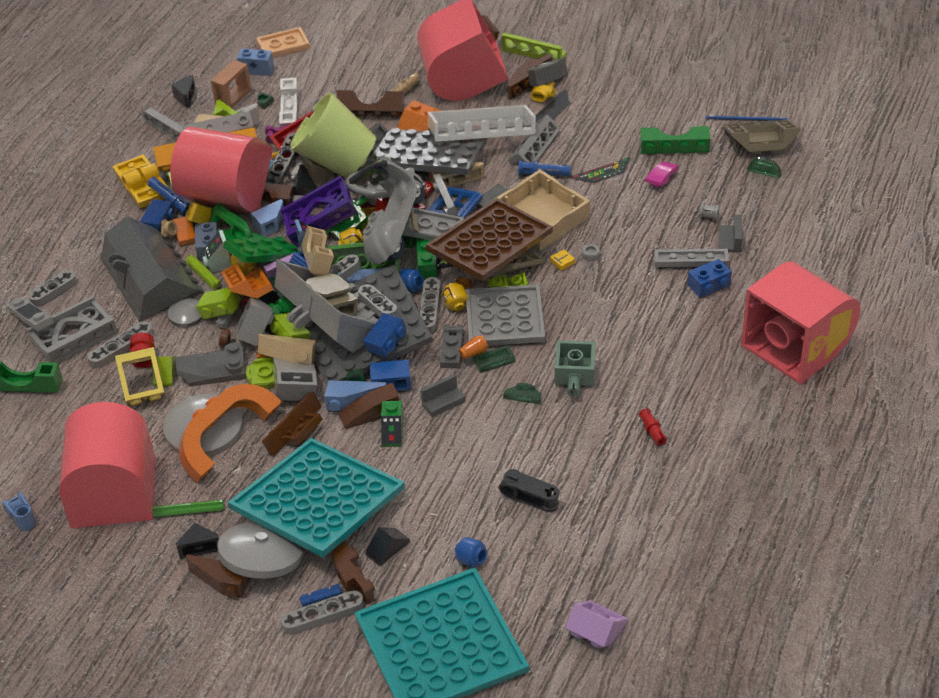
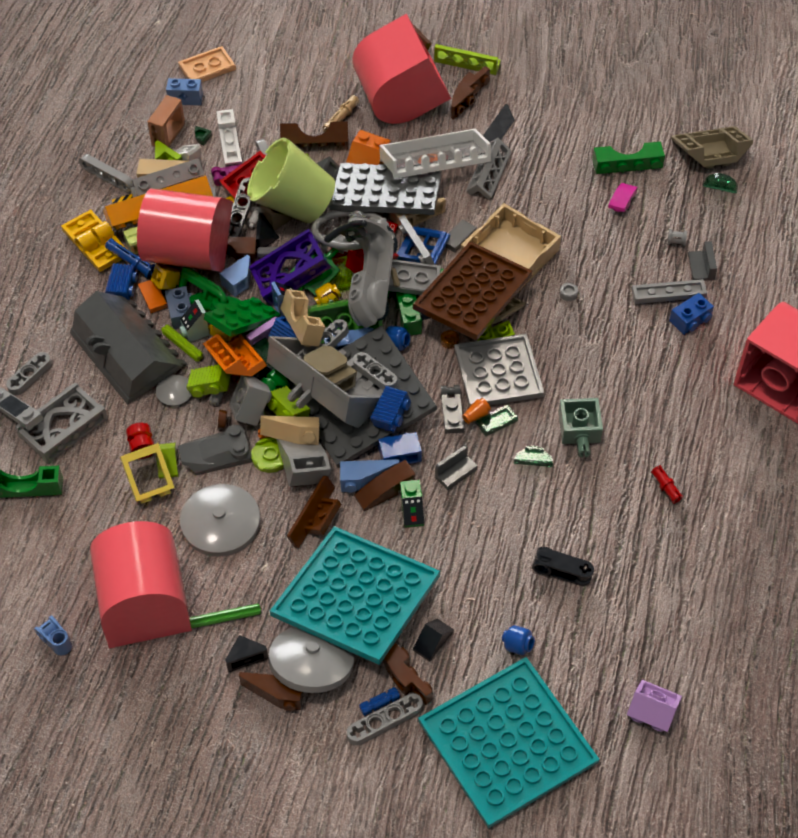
camera: 10 degrees left, 10 degrees up
(101, 355) = (111, 431): light grey beam -> none
(168, 228) = (137, 296): tan plate -> none
(184, 90) = (116, 130): black slope -> none
(248, 396) = (216, 551): orange arch -> none
(355, 375) = (364, 453): dark green tile -> none
(432, 304) = (421, 363): light grey beam -> none
(455, 296) = (445, 353): yellow head -> none
(543, 92) = (486, 110): yellow piece -> none
(547, 72) = (487, 87): dark grey slope -> none
(562, 260) = (542, 302): yellow tile -> none
(565, 170) = (496, 199): blue pin -> none
(604, 171) = (562, 197): black sticker -> none
(745, 118) = (691, 126): blue piece -> none

